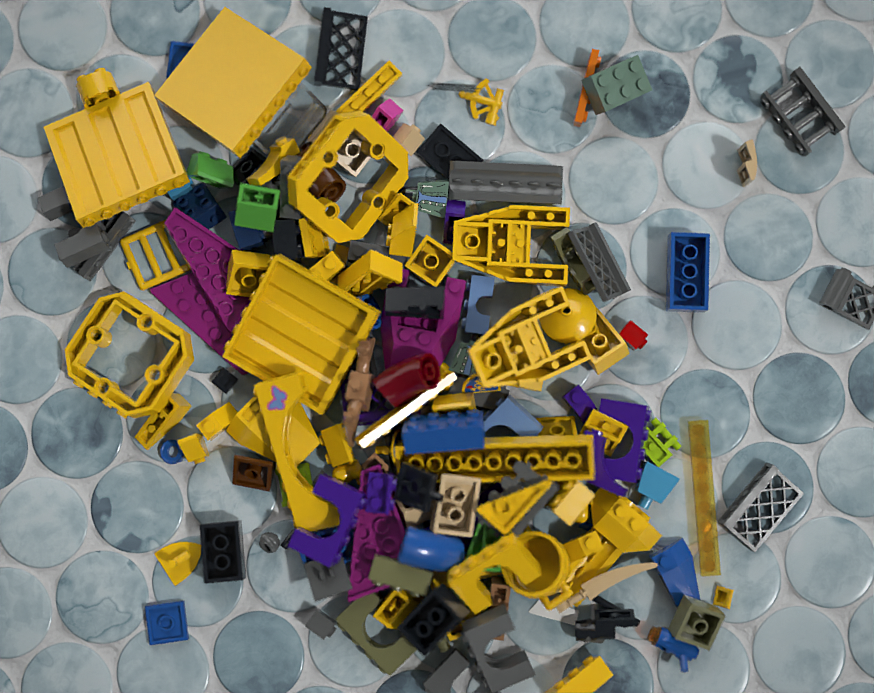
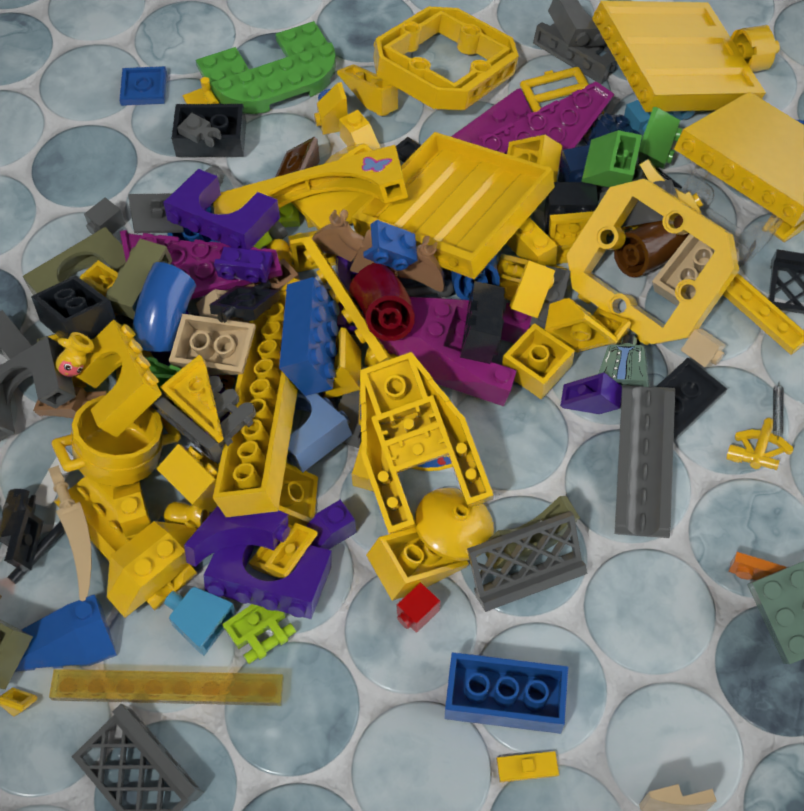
camera: 95 degrees right, 25 degrees down
(158, 500) = (304, 69): none -> bright green plate
(234, 559) = (197, 128): none -> dark grey plate
(367, 374) = (391, 246): none -> blue bracket
(387, 114) = (731, 325): dark pink slope -> none
(479, 288) = (497, 414): medium blue arch -> none
(480, 606) = (73, 357): none -> yellow animal
(501, 243) = (562, 437): yellow wedge -> none
(728, 257) = (527, 766): none -> yellow piece

